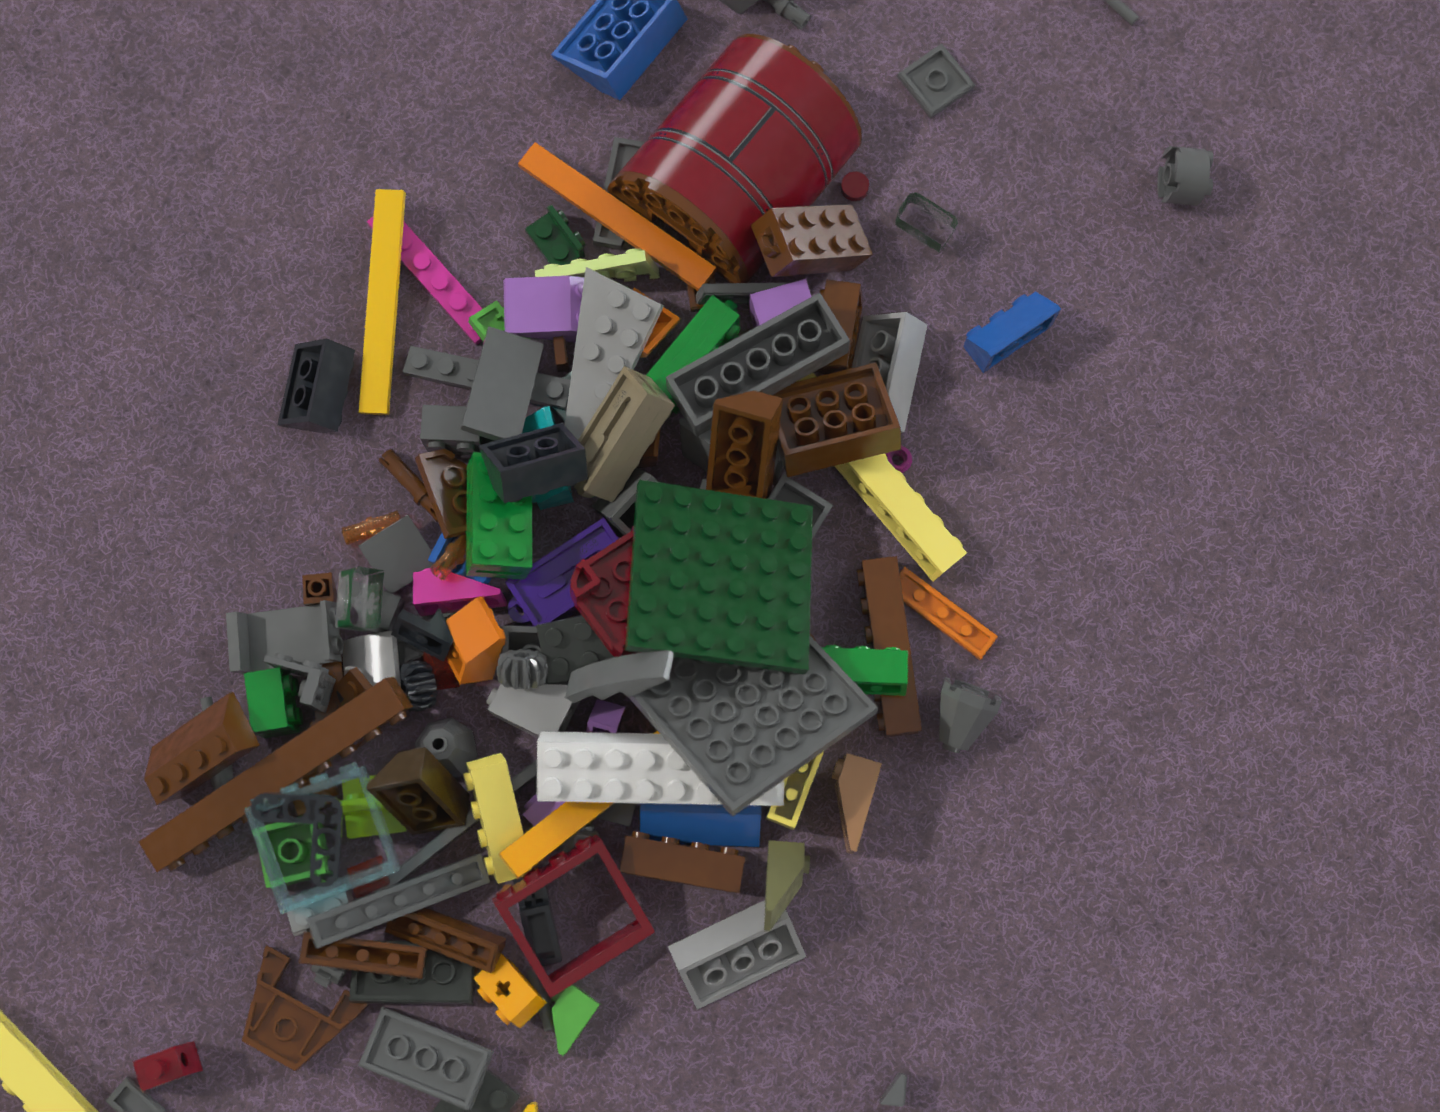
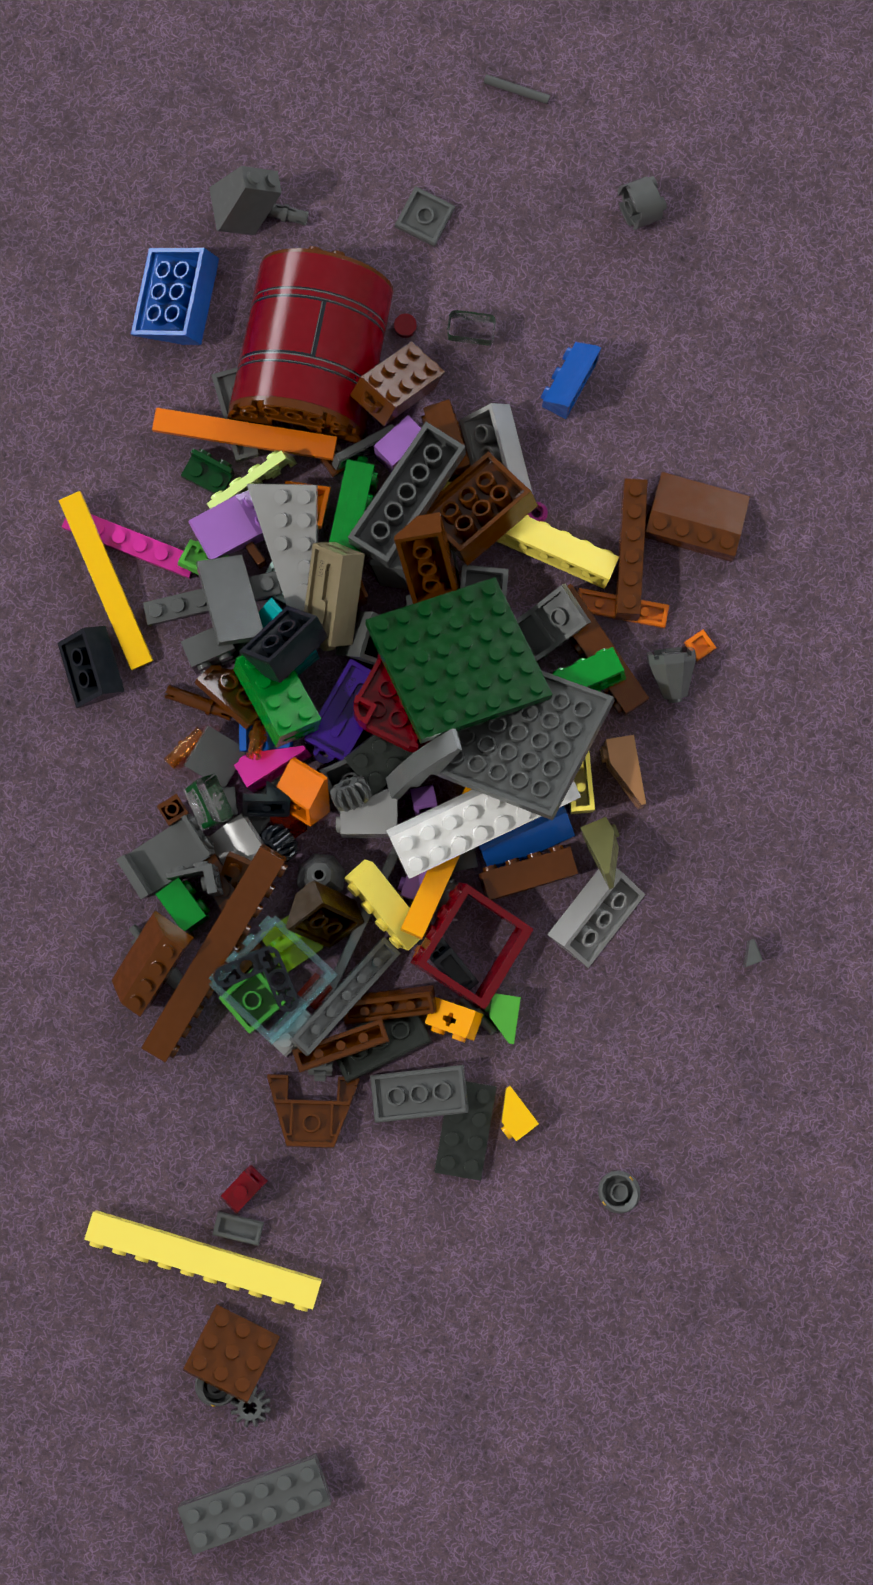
camera: 25 degrees left, 5 degrees up
(851, 589) = (552, 622): none -> dark grey bracket
(984, 552) = (631, 549): none -> reddish brown brick
(1013, 699) = (701, 644): none -> orange tile
(1078, 552) = (697, 517): none -> reddish brown slope

